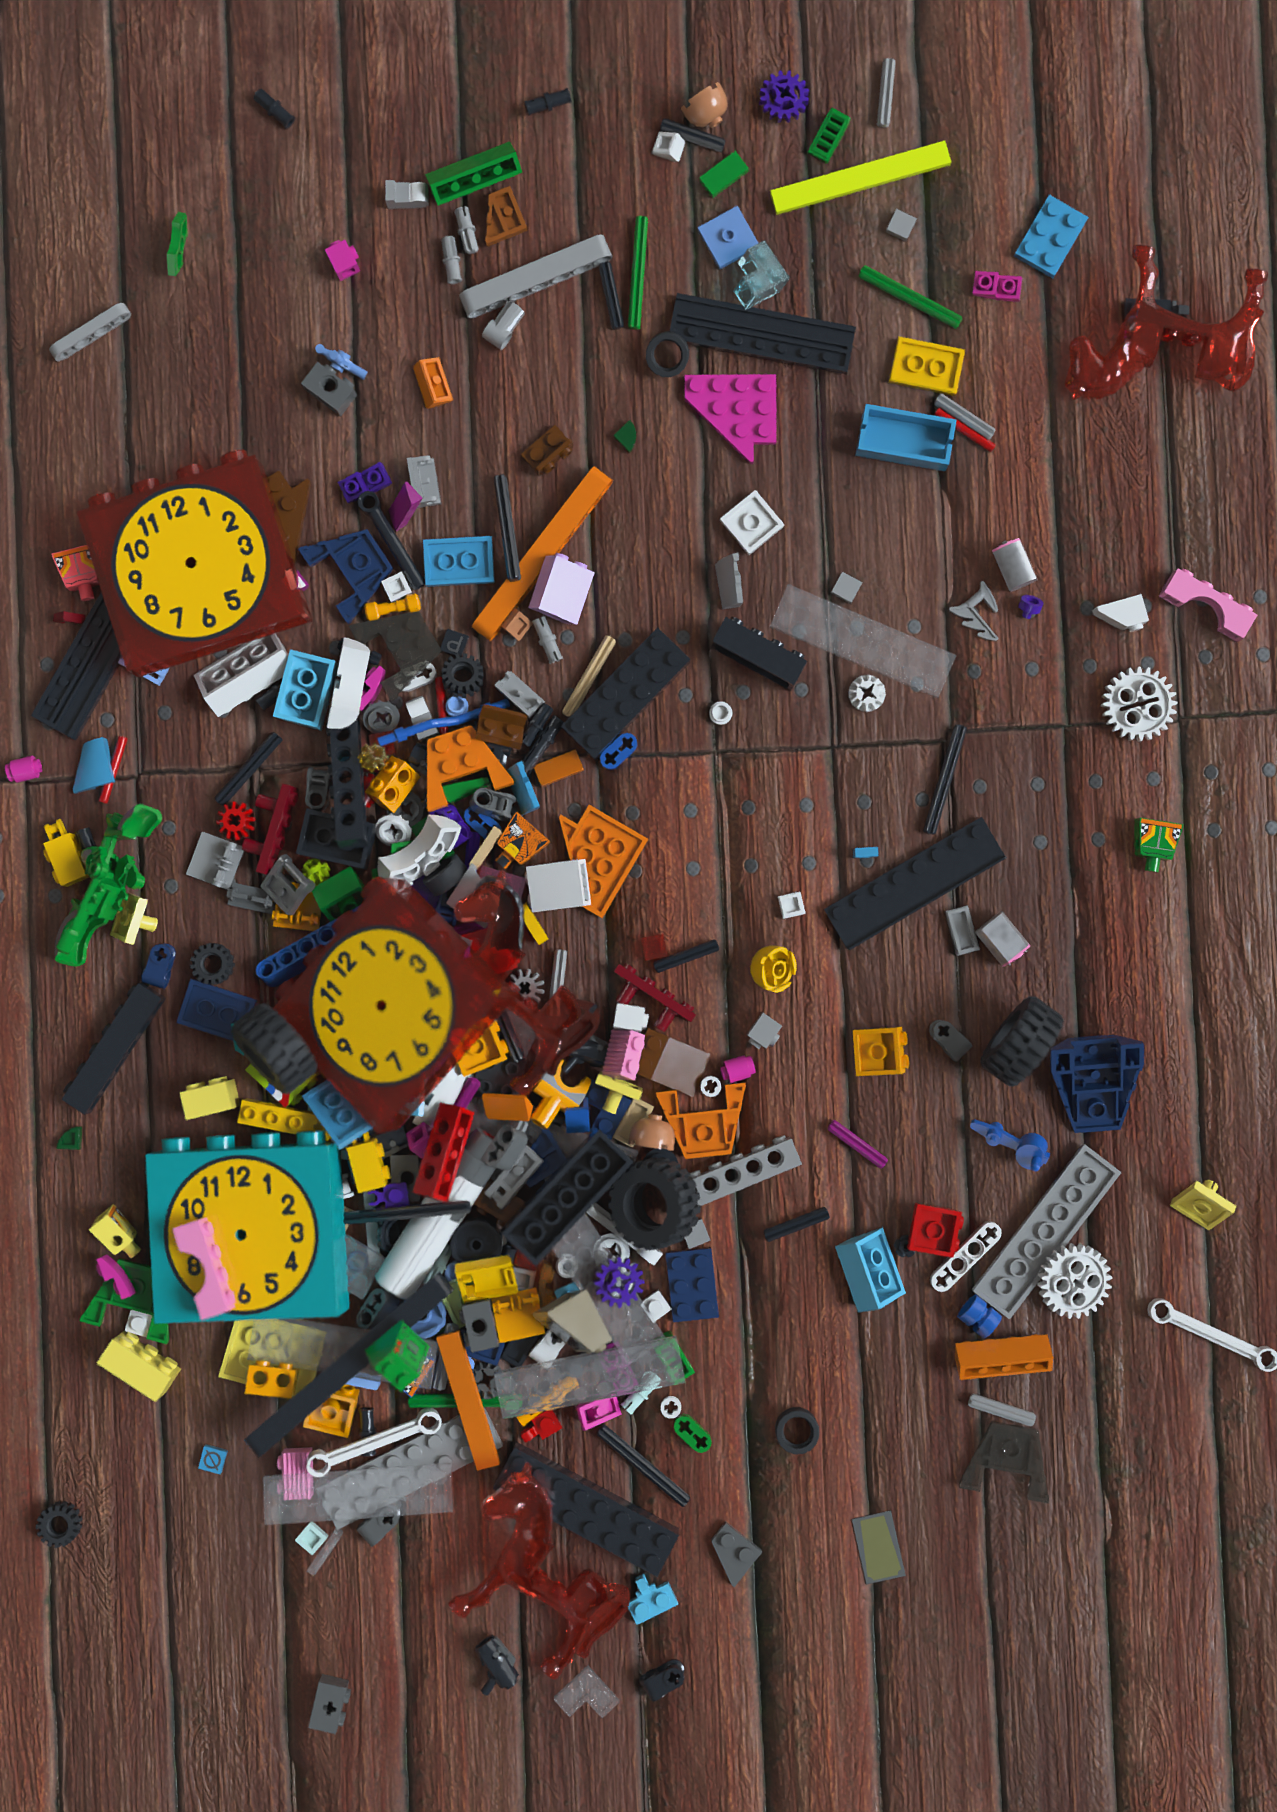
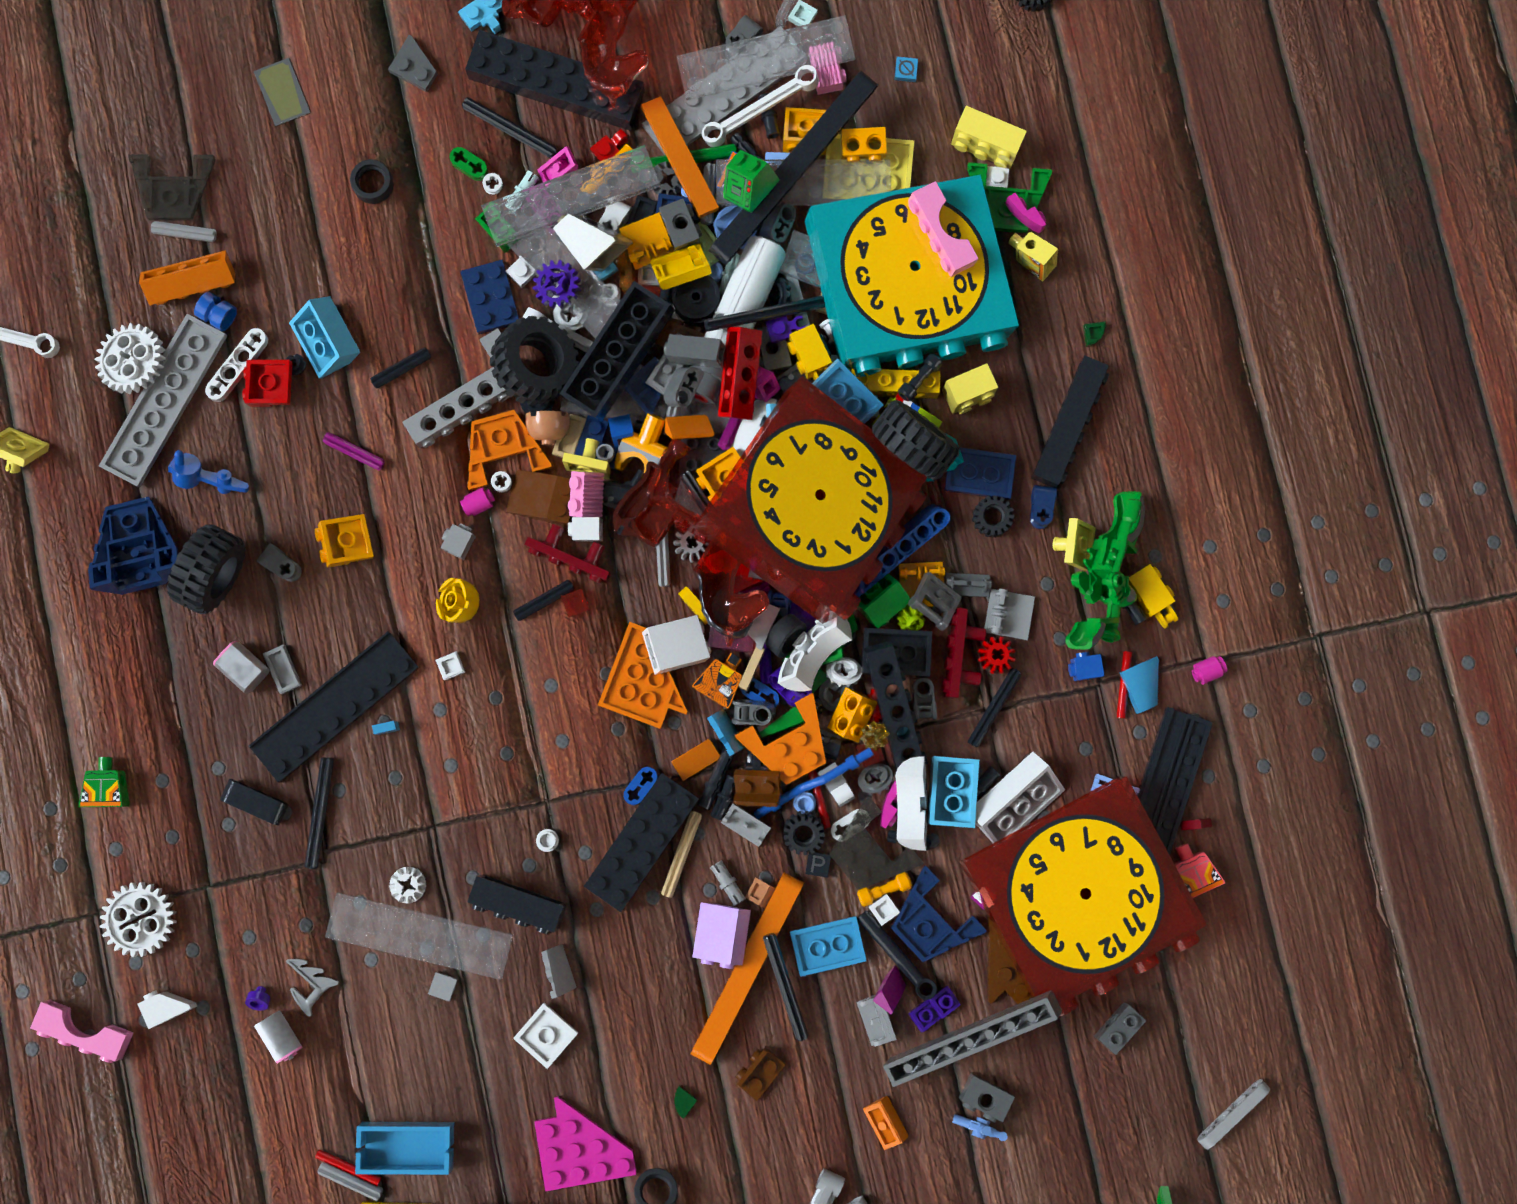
camera: 165 degrees right, 5 degrees down
(147, 792) = (1086, 667): none -> blue brick
(185, 432) = (1119, 1028): none -> dark grey brick
(272, 1105) = (908, 391): none -> black piece
(329, 443) = (973, 1038): none -> dark grey brick
(397, 1400) = (744, 145): none -> black axle
(485, 1182) = (695, 351): none -> dark grey brick
(603, 1095) = (600, 452): none -> light grey hinge
(1008, 800) = (254, 802): none -> black beam

